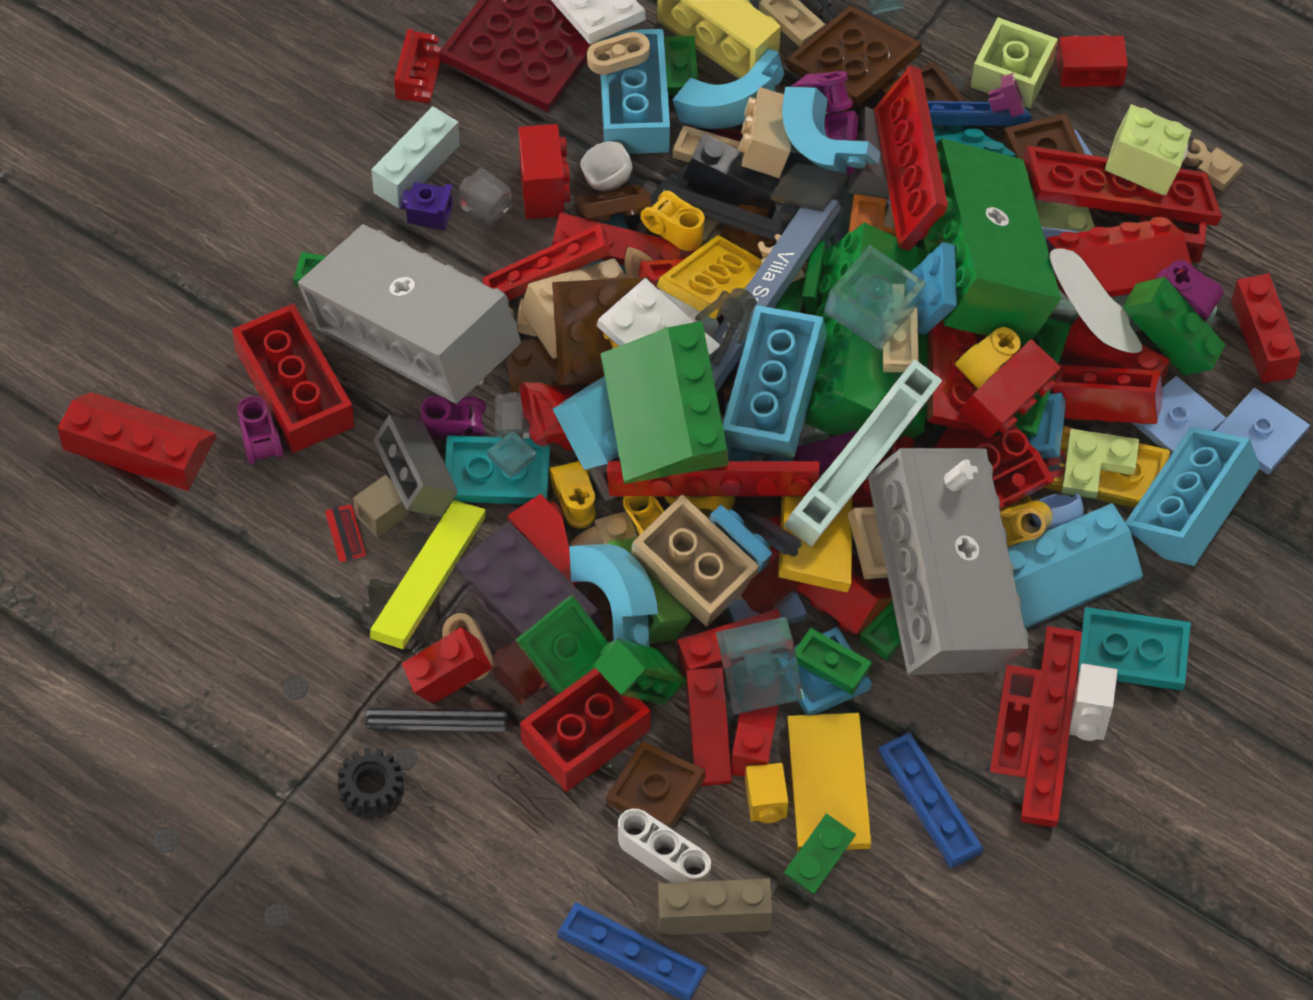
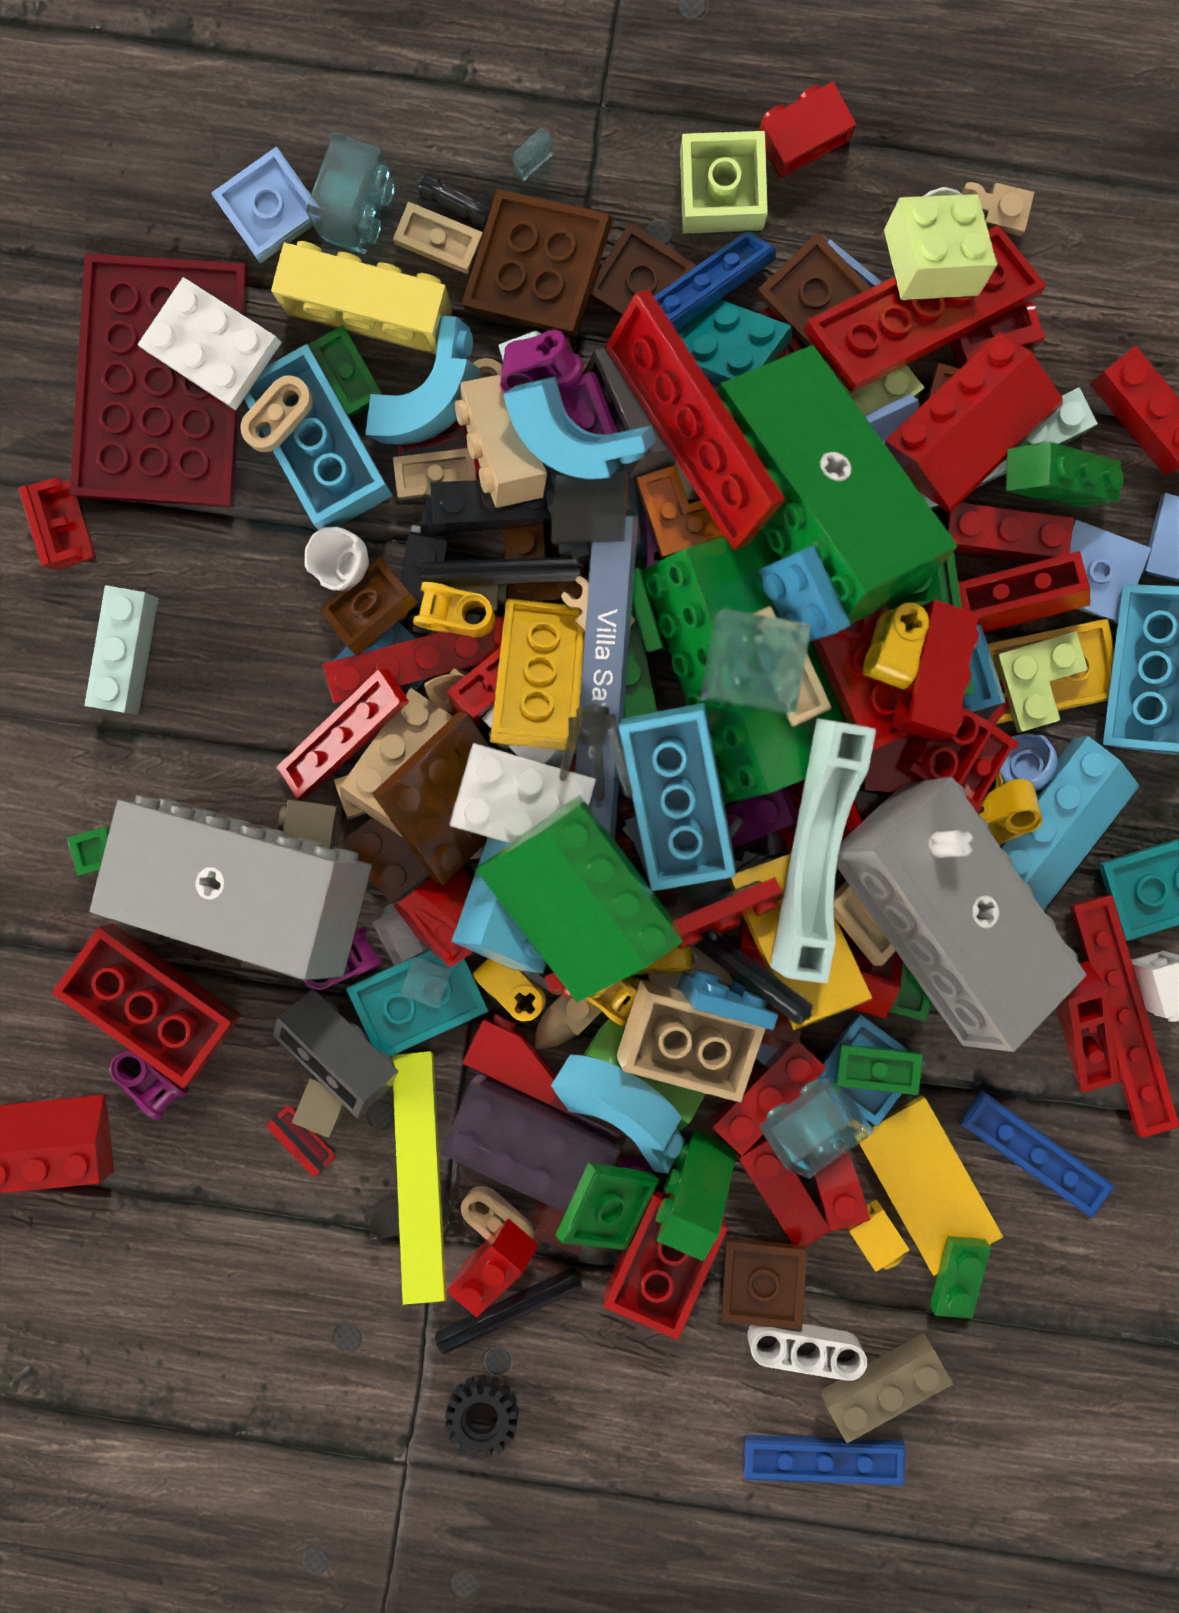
camera: 25 degrees left, 30 degrees up
(428, 205) = (182, 704): dark purple brick -> none
(485, 197) = (223, 663): clear brick -> none
(543, 171) = (270, 607): red brick -> none
(1007, 96) = (742, 244): magenta tile -> none
(1093, 303) = (978, 509): white sticker -> none
(1195, 287) = (1068, 426): magenta piece -> none

